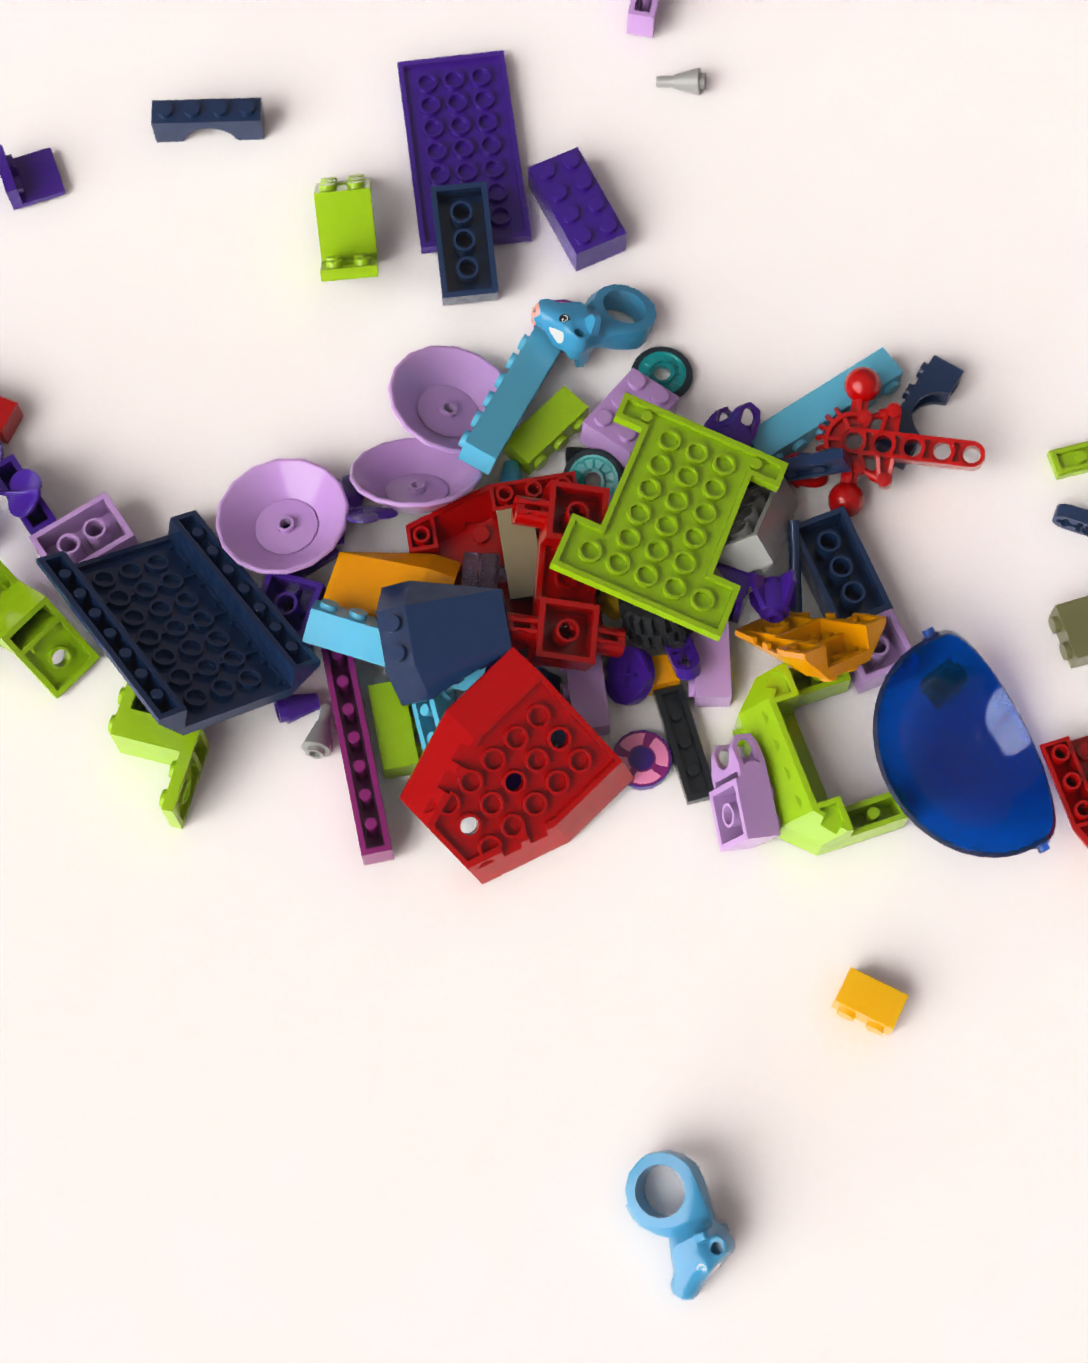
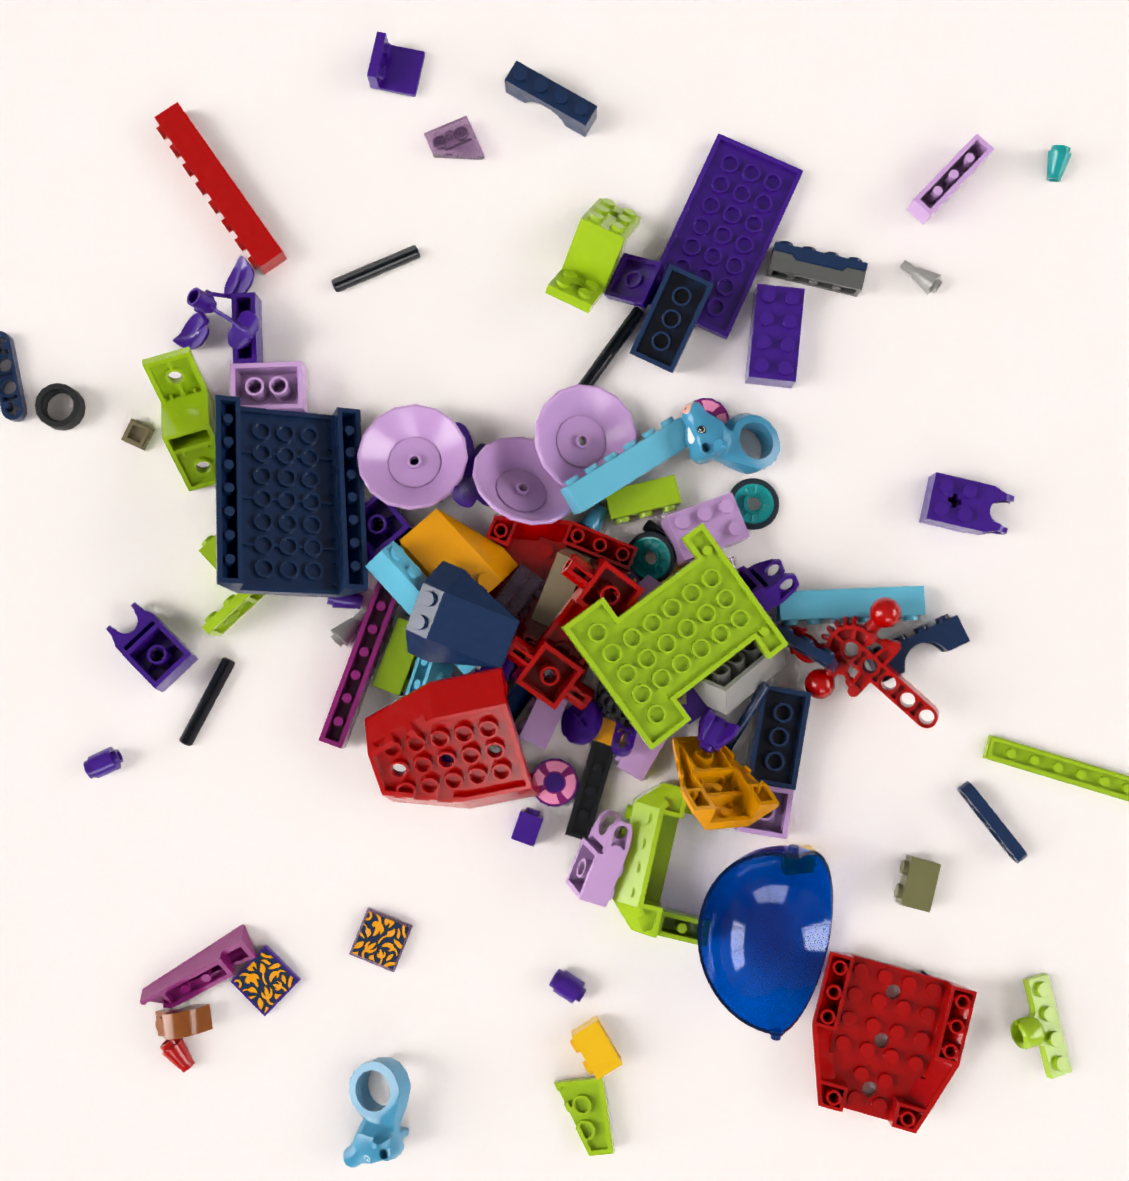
camera: 30 degrees right, 15 degrees up
(117, 877) = (146, 643): none -> dark purple brick
(125, 372) = (375, 268): none -> black axle
(132, 1034) = (103, 763): none -> dark purple brick
(133, 210) = (454, 141): none -> clear purple wing
(210, 902) = (207, 701): none -> black axle
(382, 1195) = (202, 970): none -> magenta wedge
(396, 1259) = (183, 1021): none -> dark orange brick
(402, 234) = (634, 280): none -> dark purple plate
(412, 1302) = (177, 1053): none -> red cone
(421, 304) = (612, 347): none -> black axle
(462, 1160) = (265, 980): none -> tile
(562, 1036) = (381, 939): none -> tile
(576, 127) = (816, 268): none -> dark grey piece
(643, 819) = (527, 826): none -> dark purple brick
(796, 956) = (568, 986): none -> dark purple brick
(868, 256) = (971, 505): none -> dark purple brick
(908, 1075) = (588, 1106): none -> lime wing

